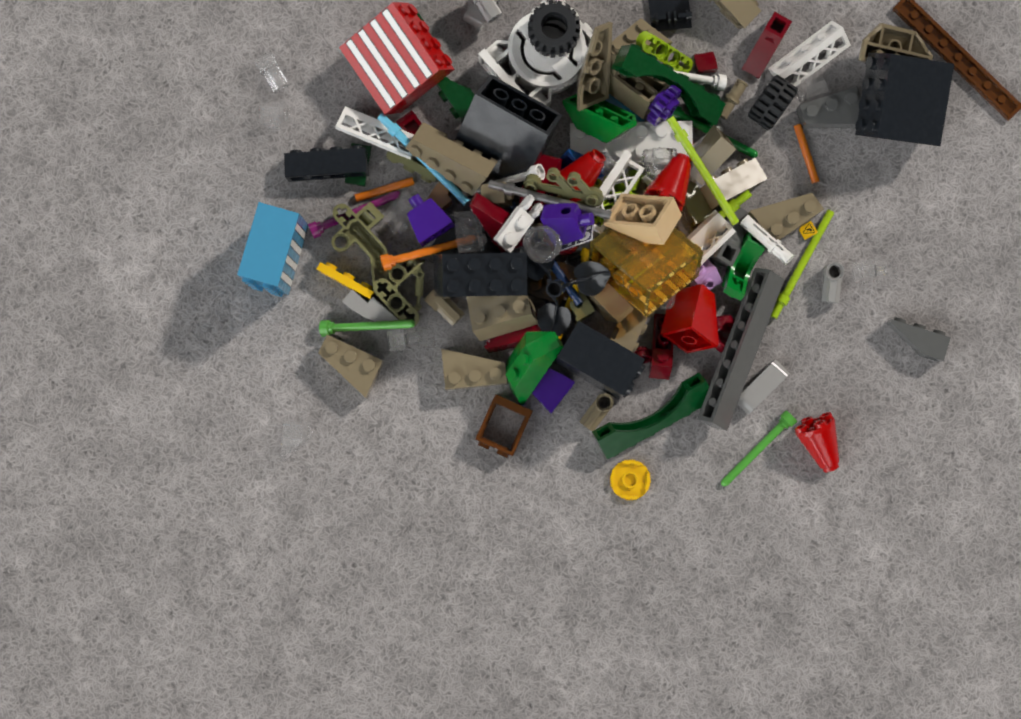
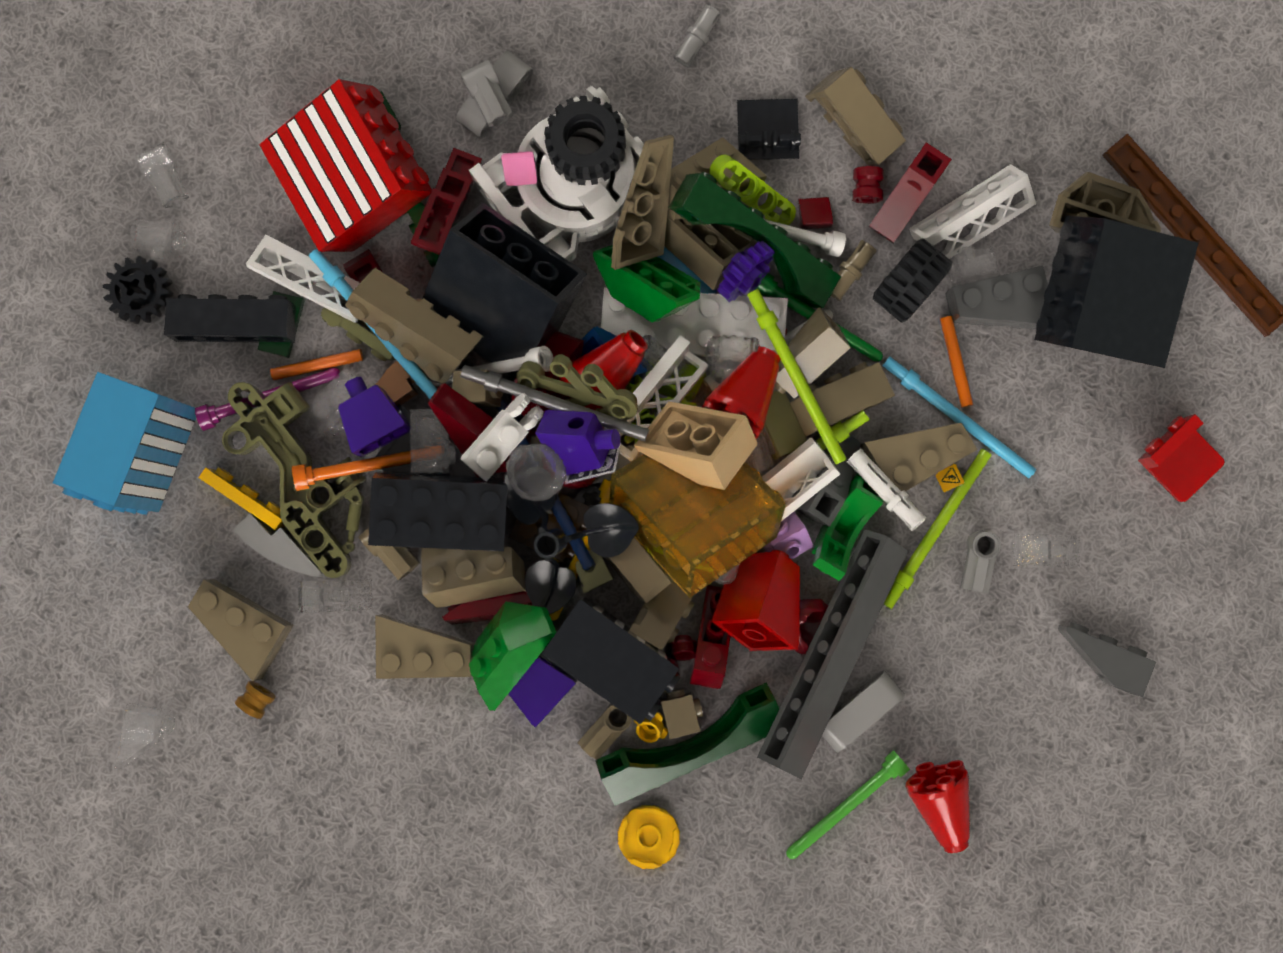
camera: 10 degrees right, 0 degrees up
(265, 142) = (130, 302): none -> black gear
(327, 327) = (211, 568): bright green piece -> none
(365, 411) = (255, 700): none -> pearl gold wheel
(463, 74) = (445, 202): none -> dark red slope
(485, 443) = (475, 709): reddish brown window -> none
(512, 50) = (519, 168): none -> bright pink slope
(621, 411) = (654, 732): none -> yellow plate
(645, 397) = (681, 713): none -> dark tan brick
(739, 44) = (868, 186): none -> dark red wheel
(777, 168) = (911, 380): none -> medium azure bar
(958, 205) = (1182, 458): none -> red bracket

